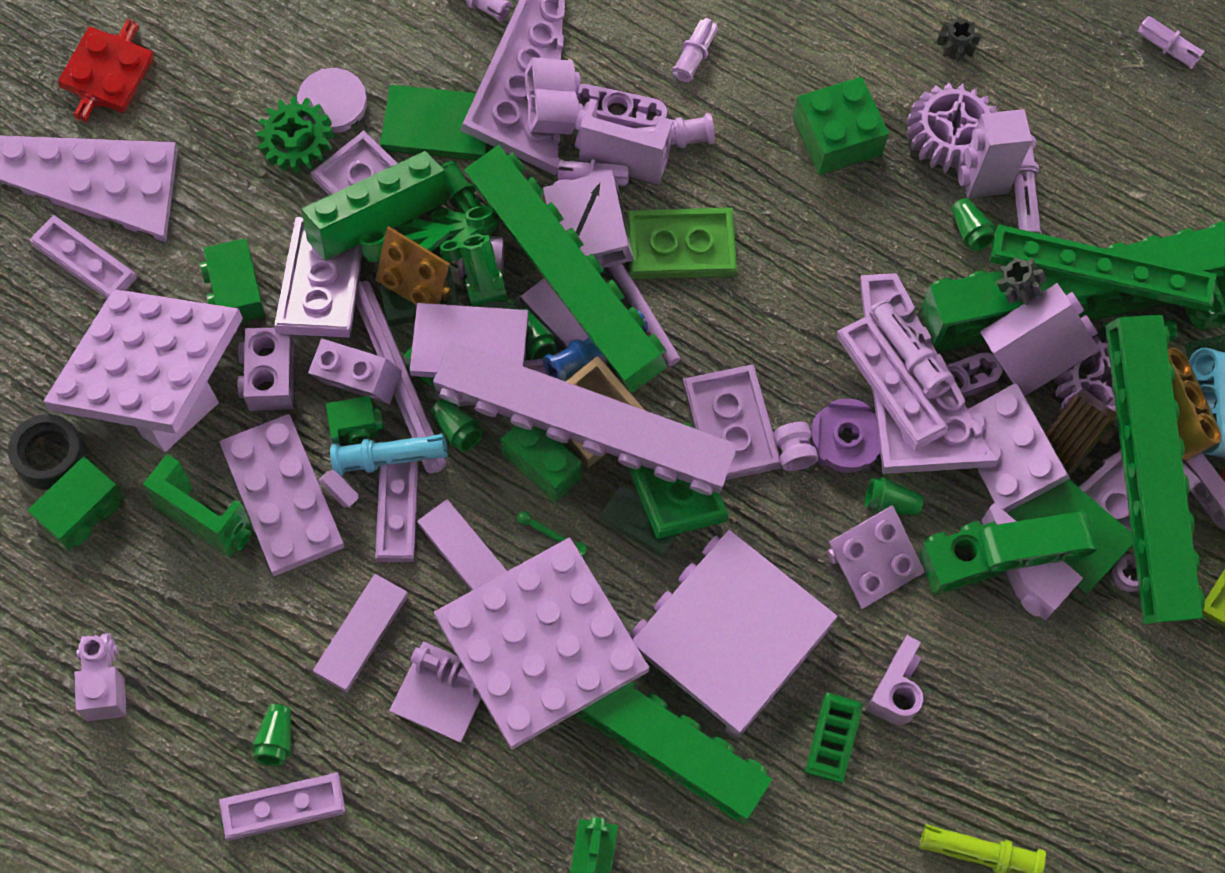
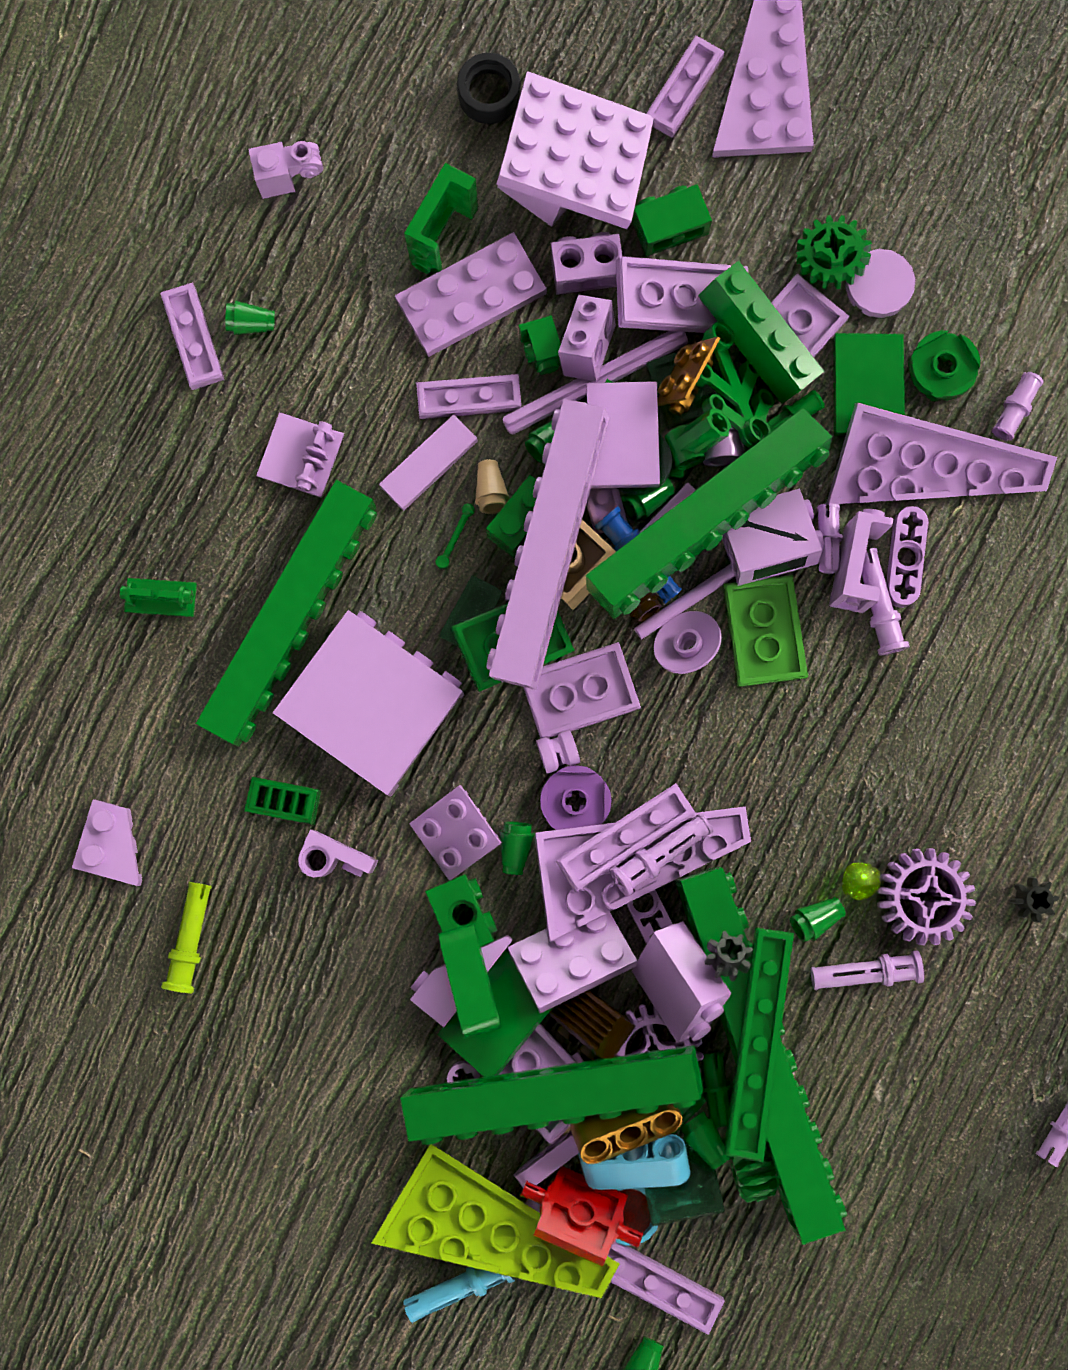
camera: 90 degrees right, 15 degrees up
(76, 504) = (441, 121): green brick -> none
(105, 70) = (885, 70): red plate -> none
(338, 488) = (474, 339): lavender tile -> none
(360, 633) = (348, 379): lavender tile -> none
(371, 454) = (509, 365): medium azure pin -> none
(431, 70) = (936, 383): none -> green plate
(504, 489) = (490, 488): none -> tan cone
(541, 642) = (338, 529): lavender plate -> none
(552, 95) = (903, 486): lavender brick -> none
(675, 305) = (681, 633): none -> lavender dish
(695, 50) = (985, 628): lavender axle -> none
(840, 125) = (913, 779): green brick -> none
(936, 182) = (860, 880): none -> clear neon green piece
(995, 153) = (887, 933): lavender brick -> none
(1194, 336) = (705, 1140): none -> green cone

